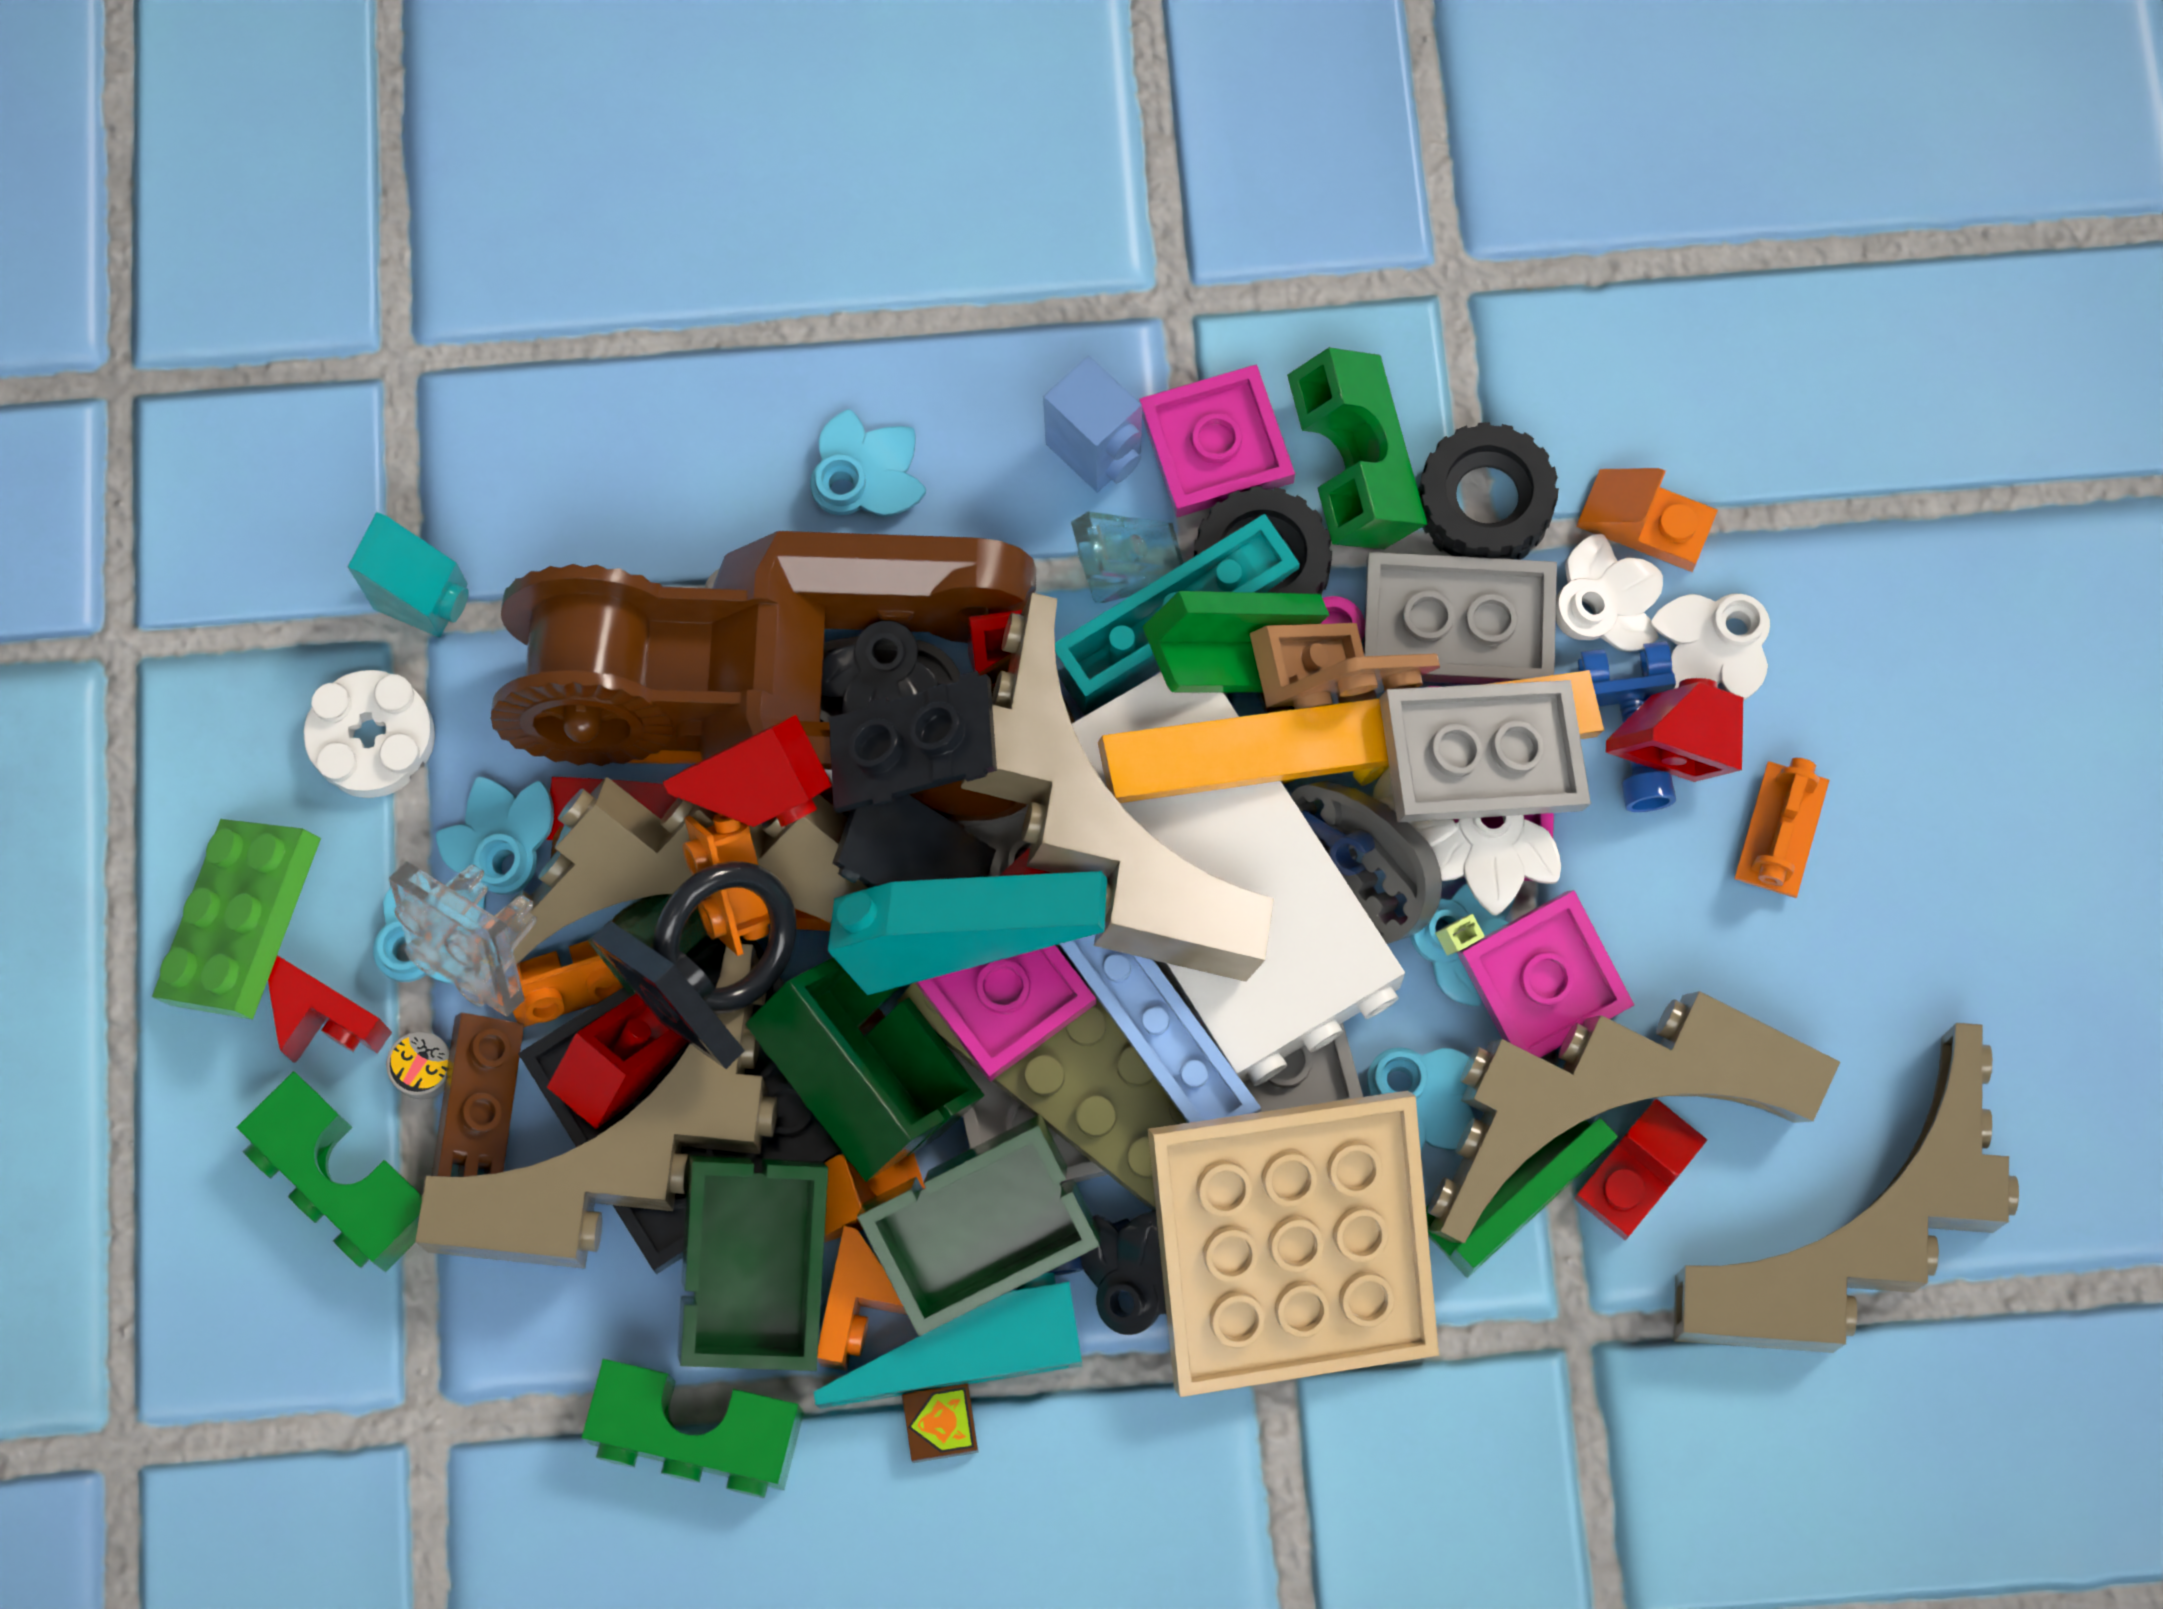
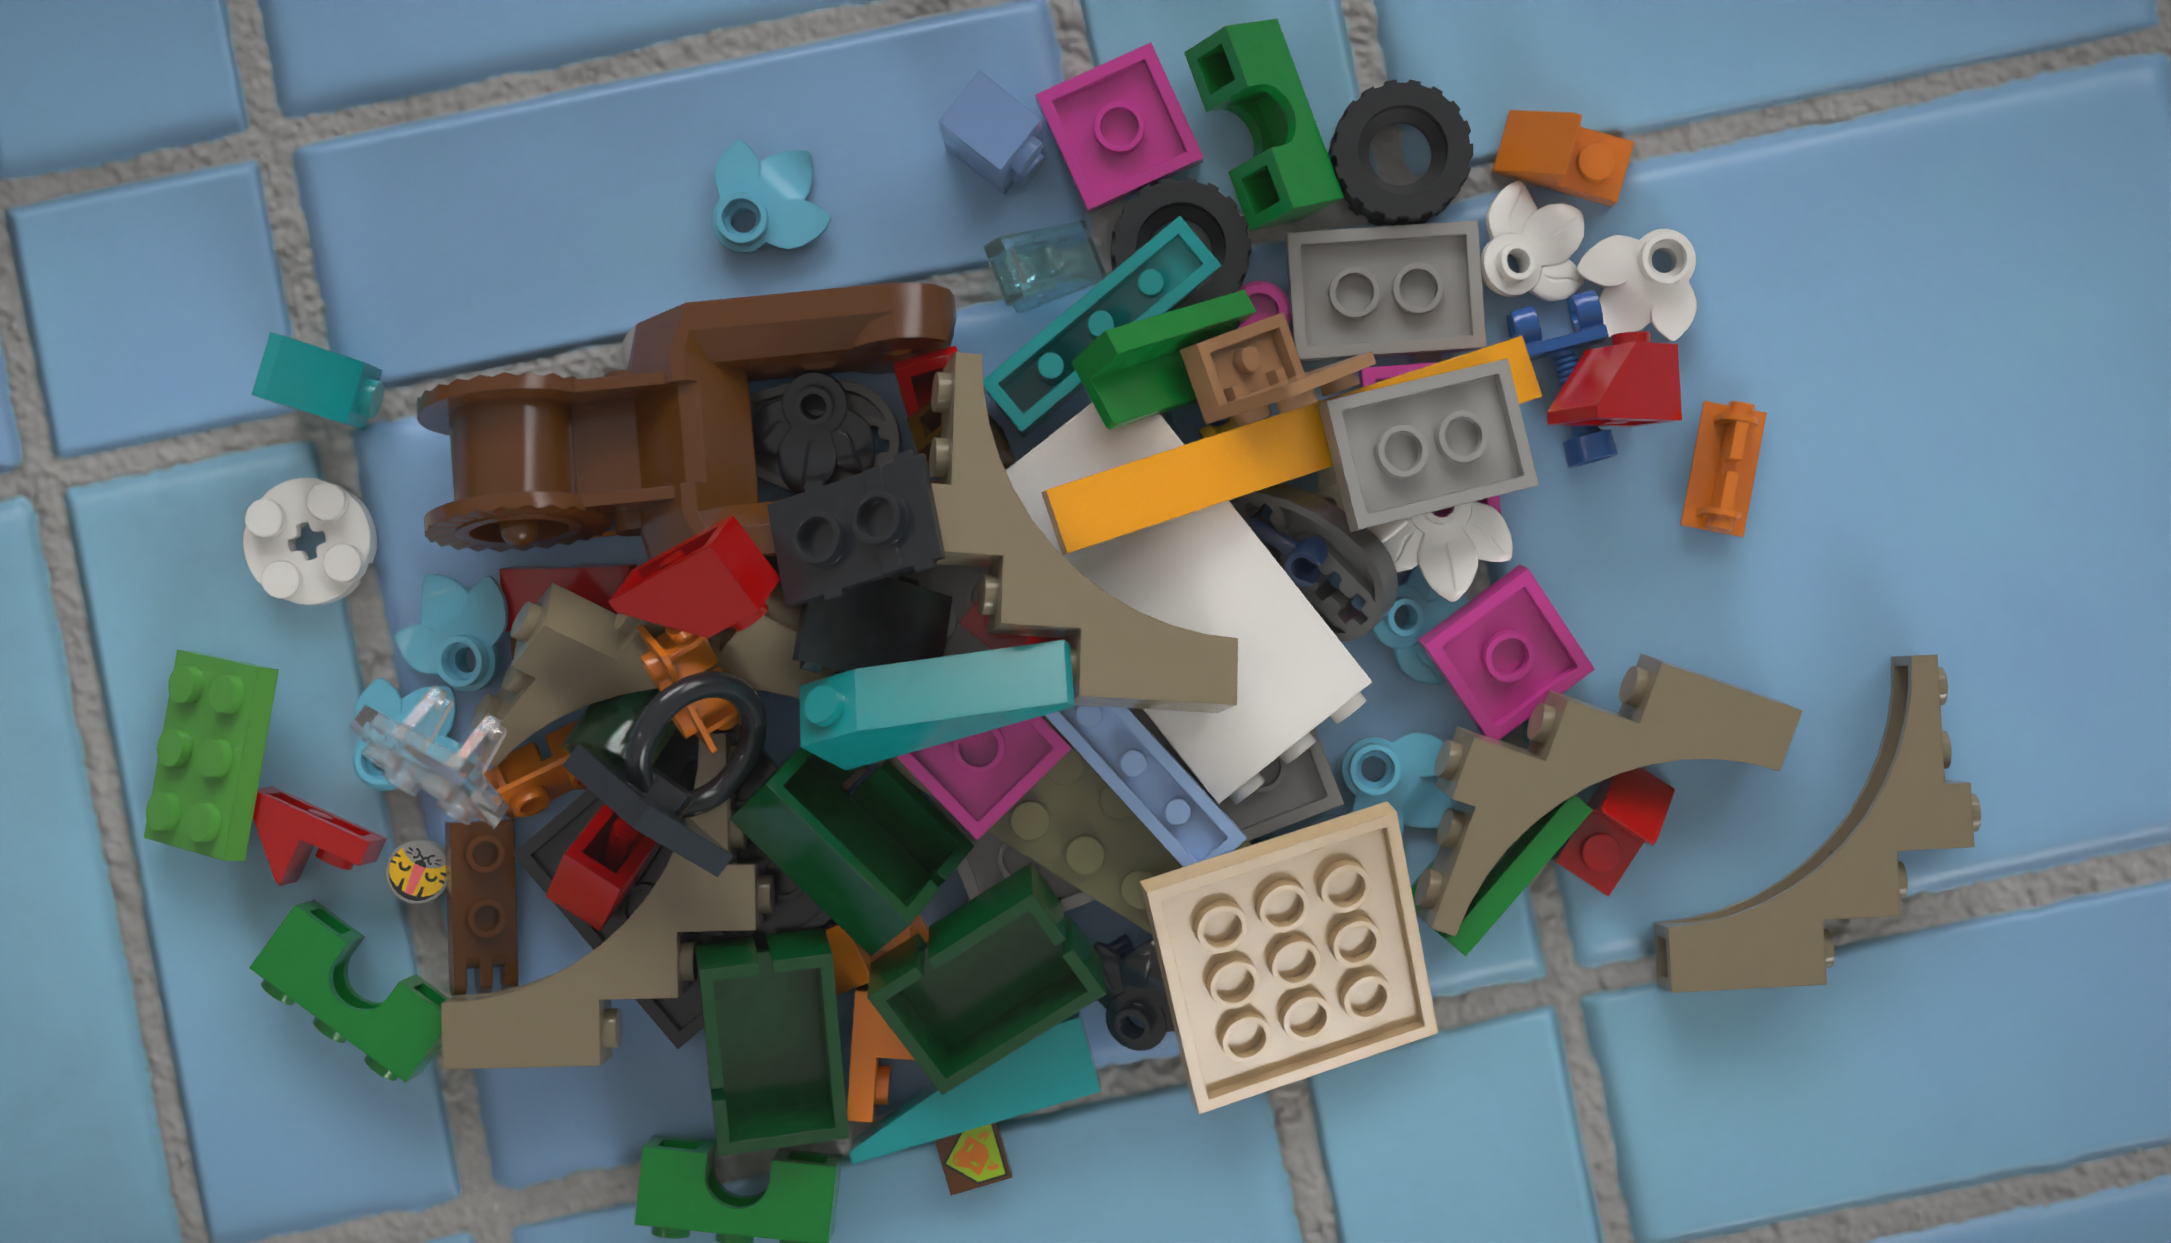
camera: 10 degrees left, 15 degrees up
(1459, 934) = (1419, 625): yellowish green piece -> none

